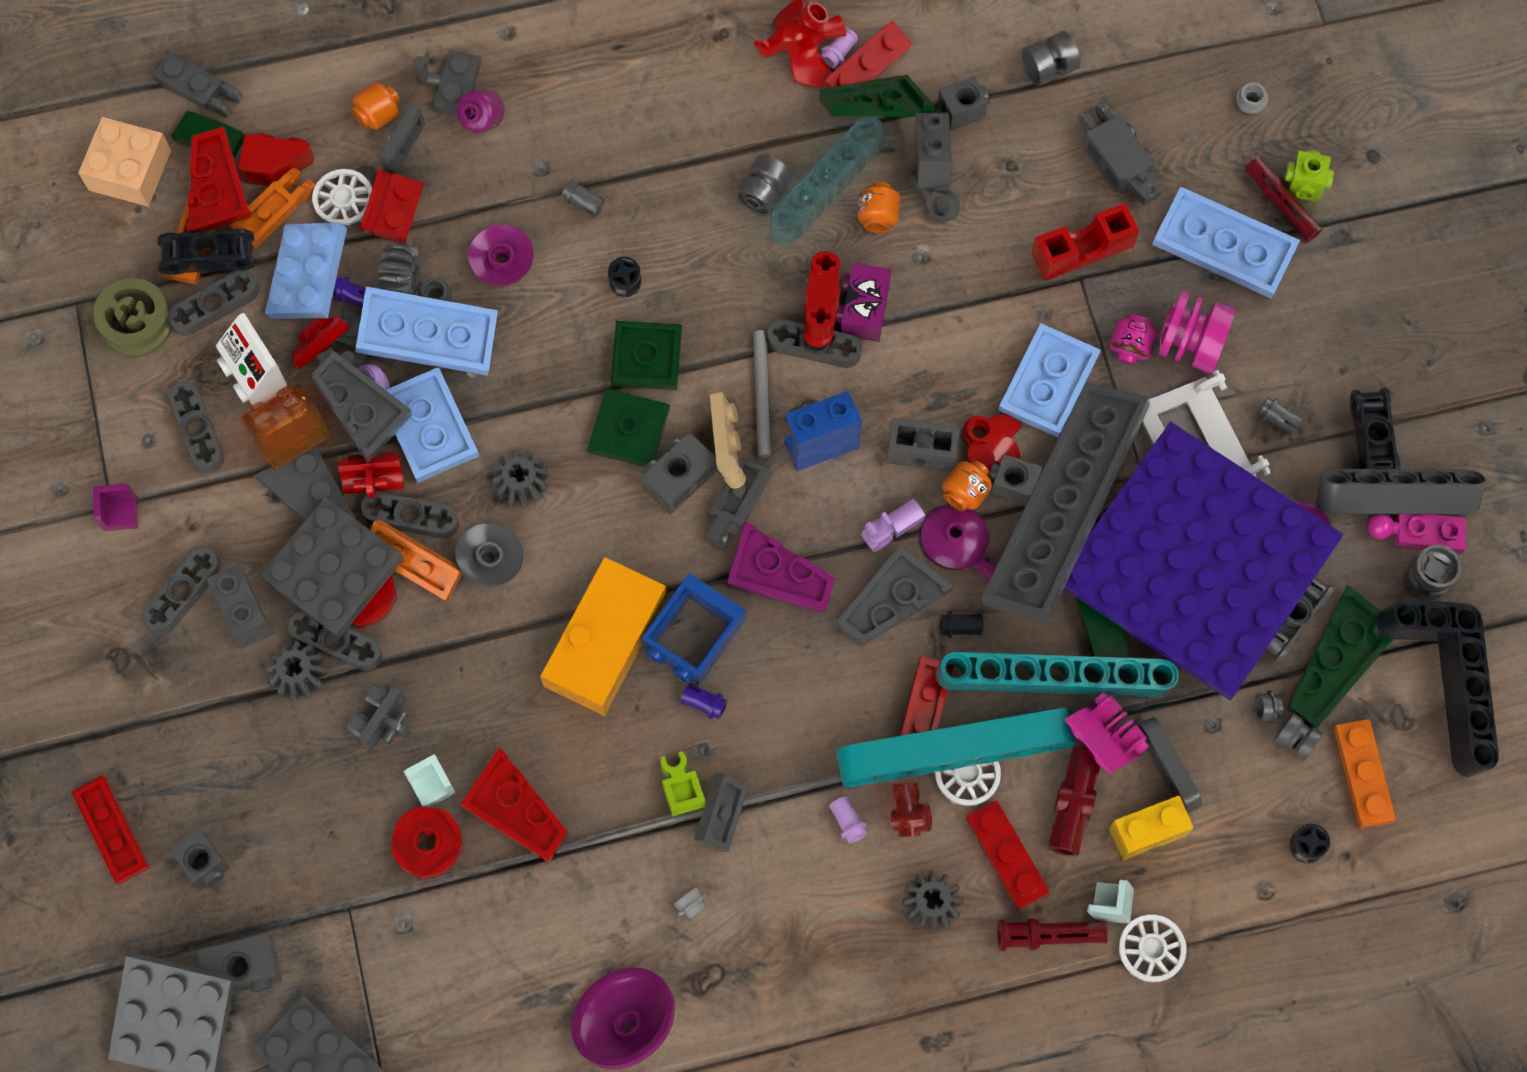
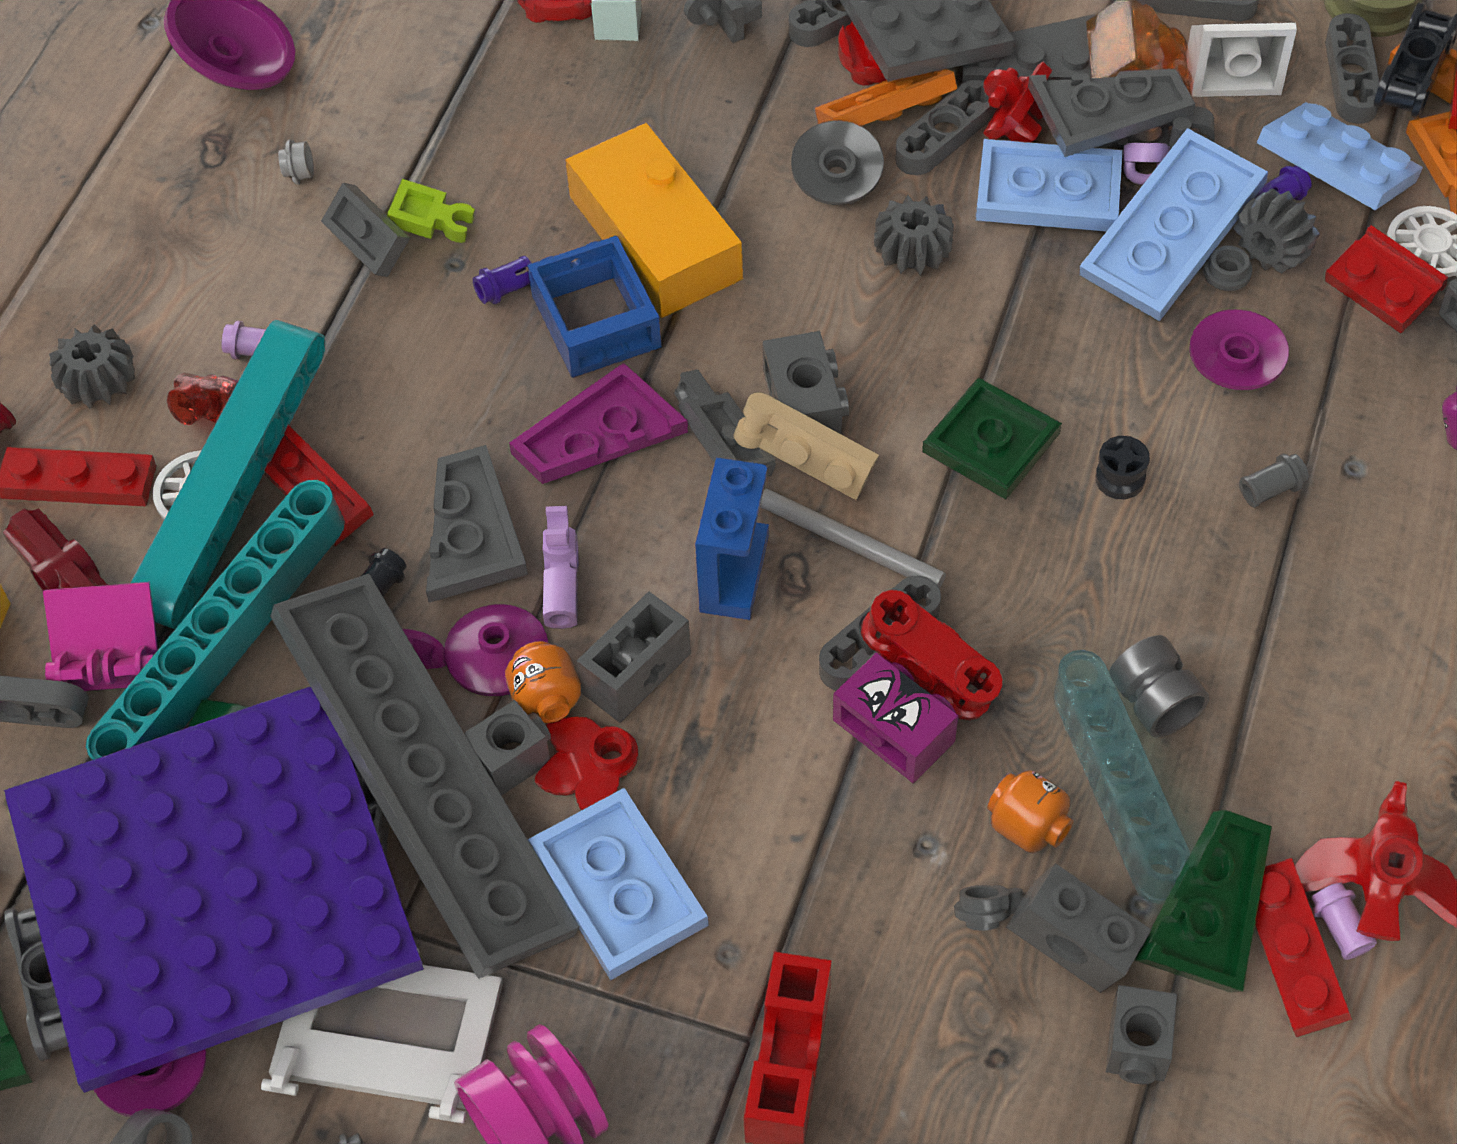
camera: 125 degrees right, 15 degrees down
(317, 338) = (1234, 130): red plate -> none
(514, 808) = (529, 65): red wing -> none
(628, 428) = (905, 377): dark green plate -> none
(1133, 339) = (595, 1028): dark pink head -> none

